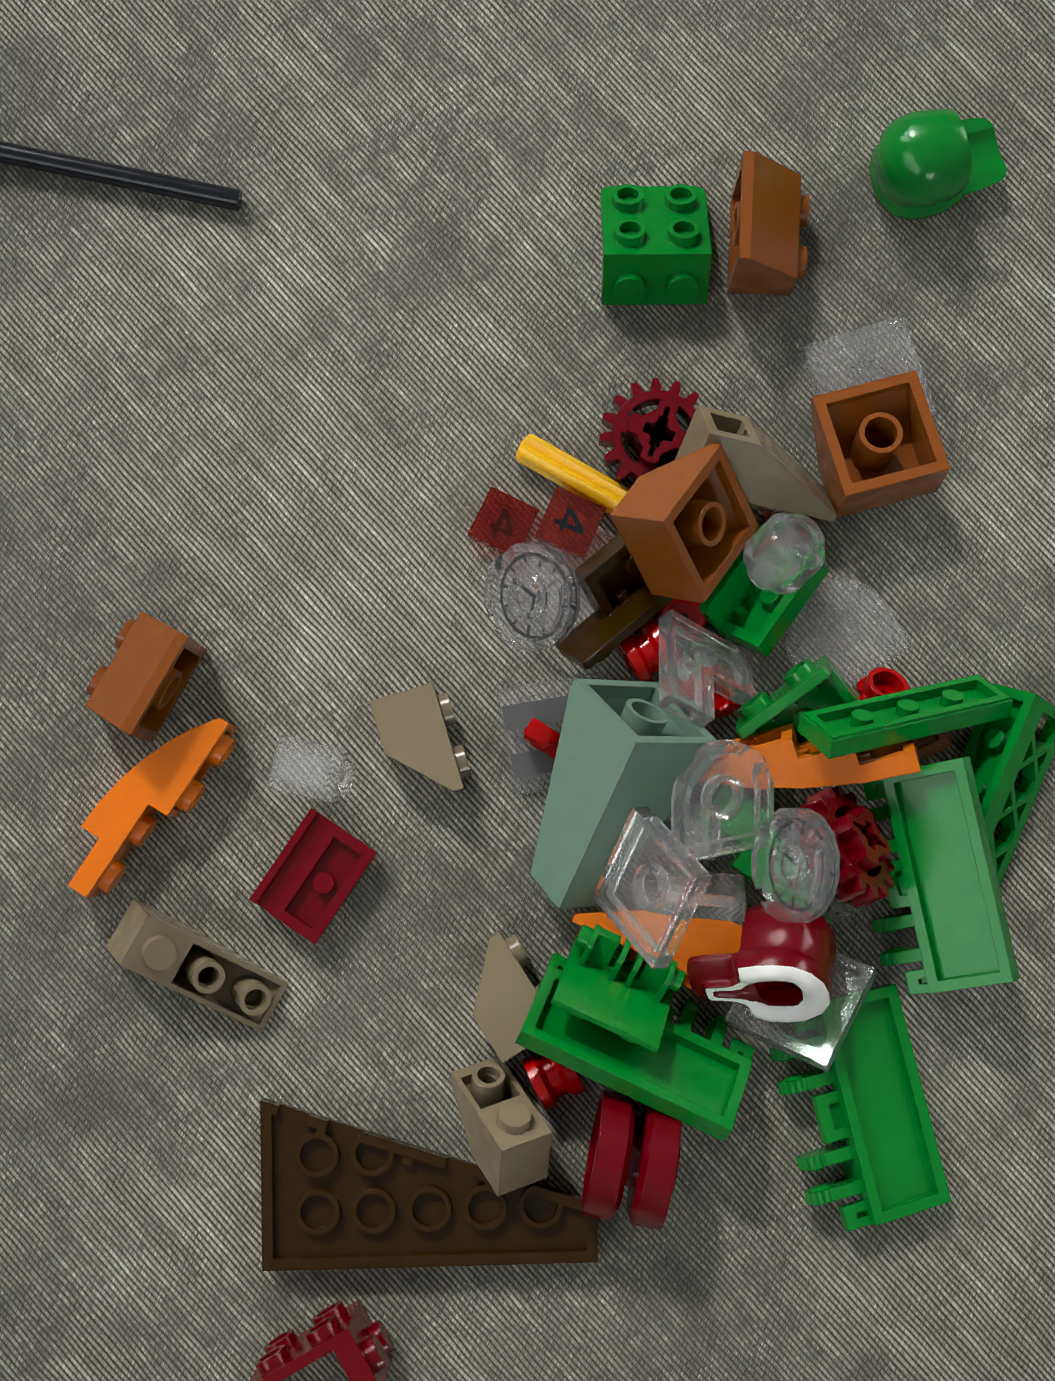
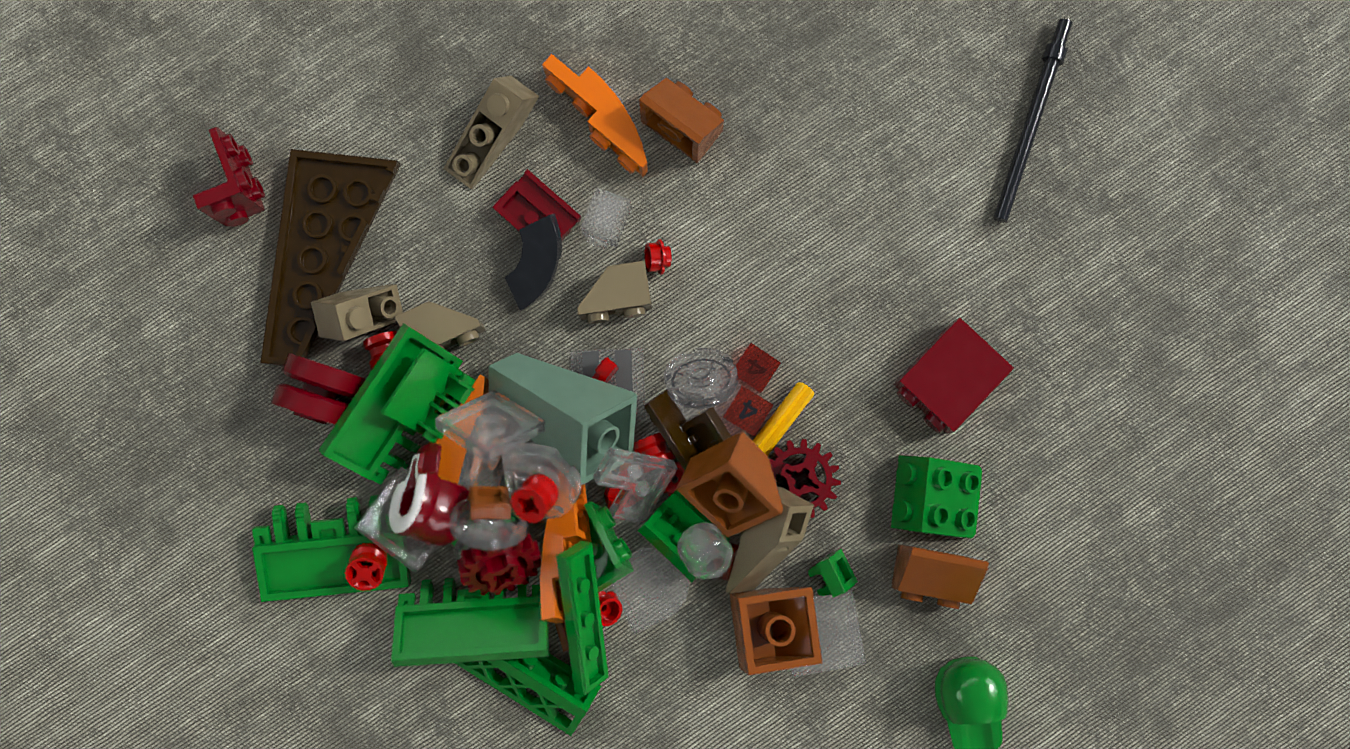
camera: 100 degrees right, 0 degrees up
(357, 686) = (657, 257): none -> red plate
(389, 860) = (538, 261): none -> black tile
(480, 240) = (952, 377): none -> dark red brick
(750, 802) = (544, 496): none -> red wheel
(766, 869) = (489, 502): none -> dark orange tile
(782, 371) = (836, 574): none -> green tile
(888, 1055) = (366, 576): none -> red wheel

